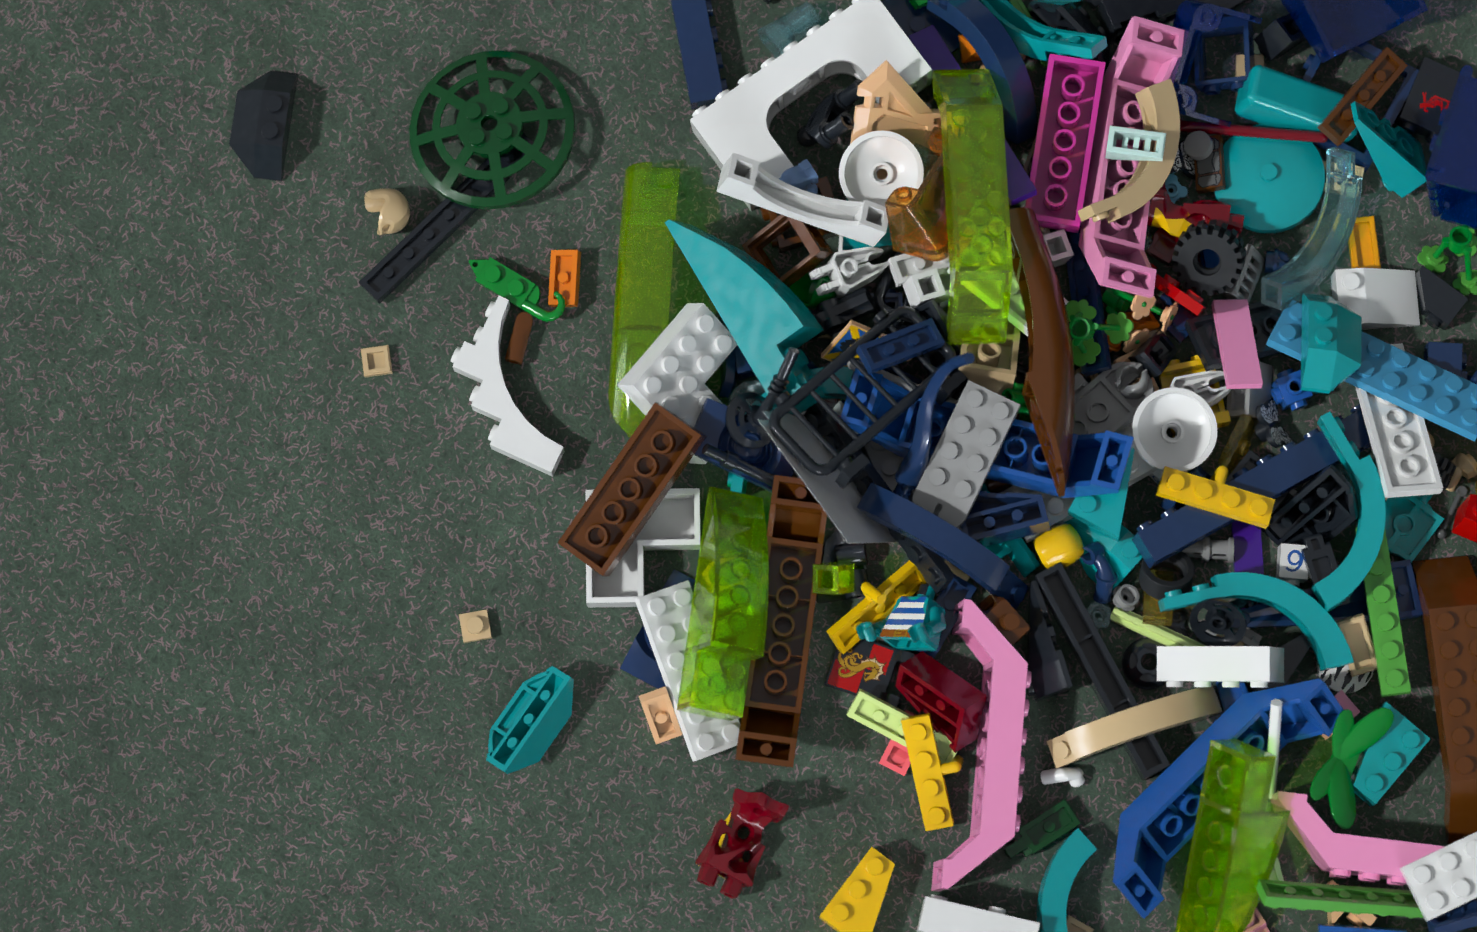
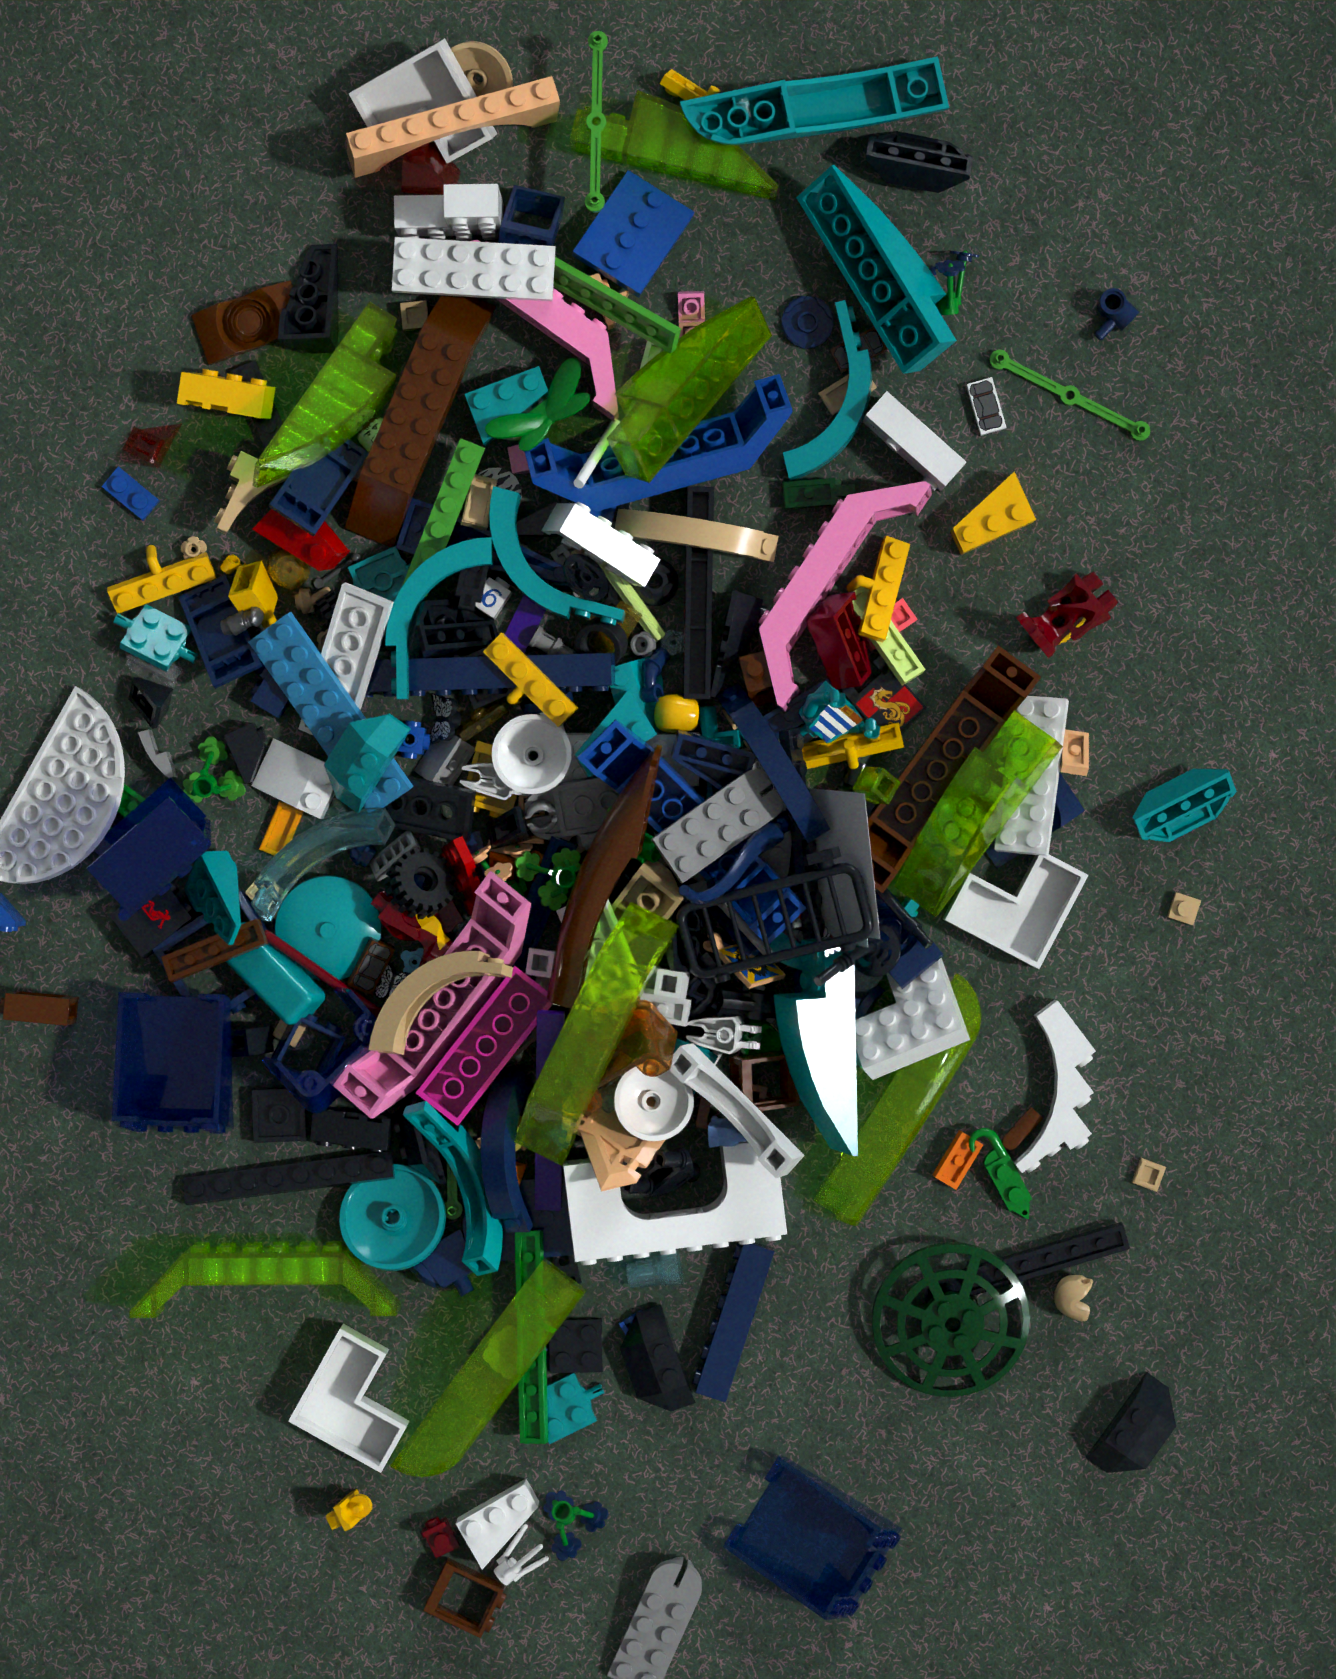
camera: 155 degrees left, 10 degrees up
(631, 489) = (1005, 945): reddish brown arch -> none
(900, 346) = (722, 942): dark blue plate -> none
(1057, 775) = (766, 524): white arm -> none
(1125, 134) = (425, 1015): light aqua slope -> none
(1198, 145) = (371, 986): light grey tile -> none
(1237, 344) = (438, 799): bright pink piece -> none

